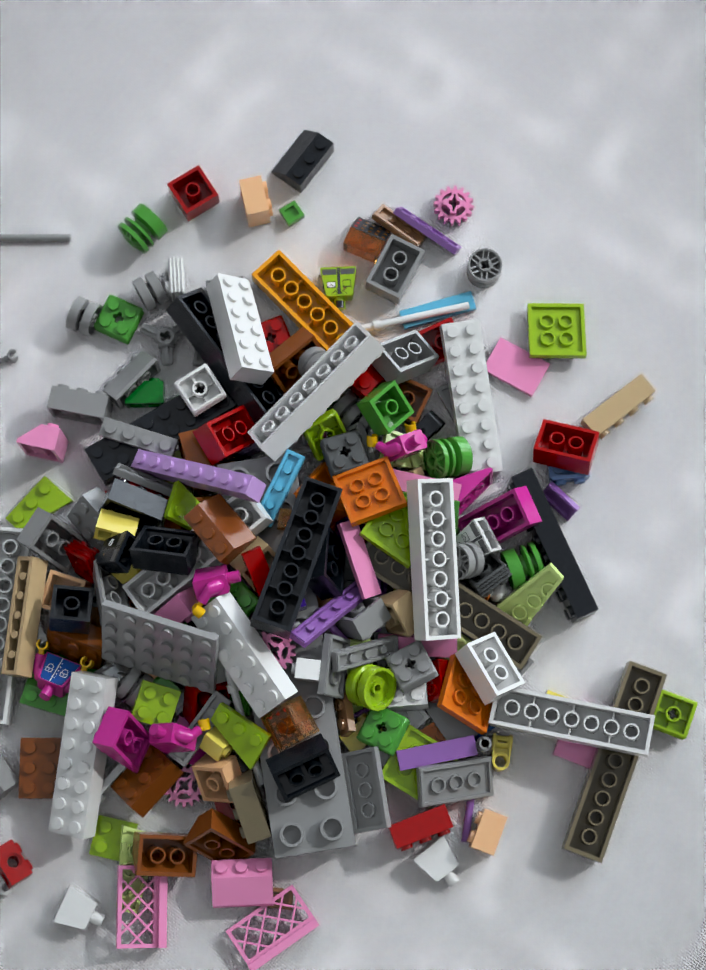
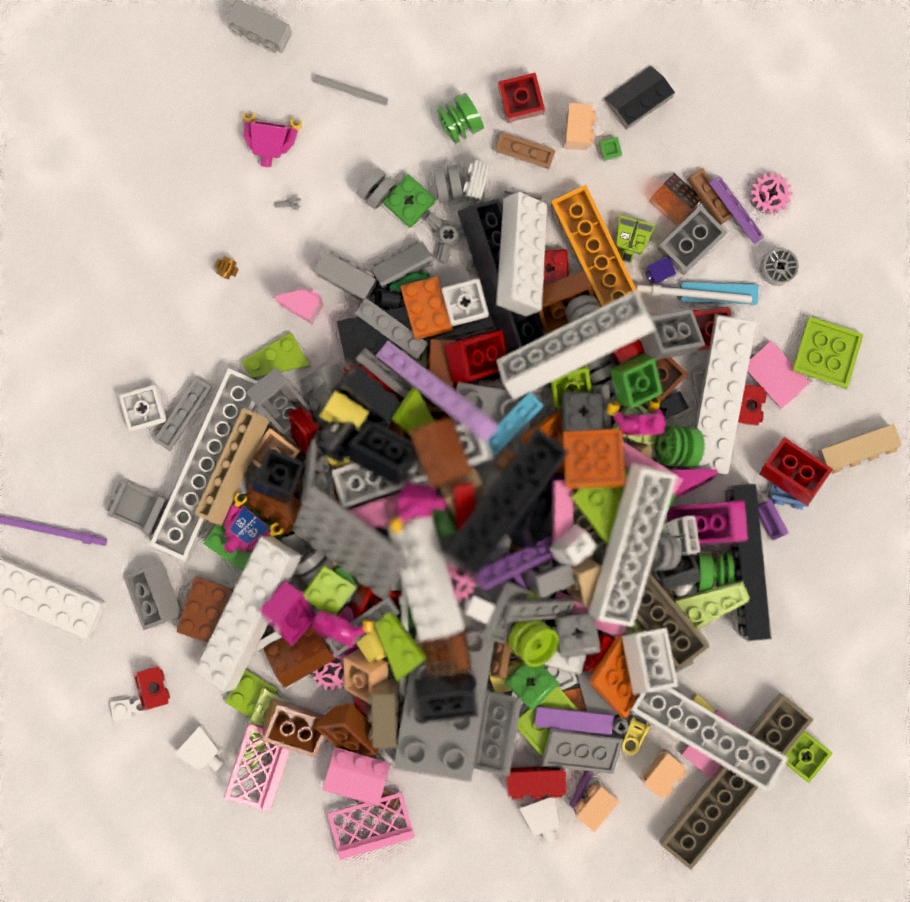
camera: 20 degrees right, 10 degrees up
(126, 412) = (386, 299): none -> black piece
(165, 408) = (426, 308): none -> orange plate
(212, 239) = (525, 150): none -> medium nougat plate
(375, 307) = (660, 271): none -> dark purple brick
(379, 576) = (572, 546): none -> white torso
(506, 391) = (758, 396): none -> red brick
(542, 777) = (663, 774): none -> light nougat brick

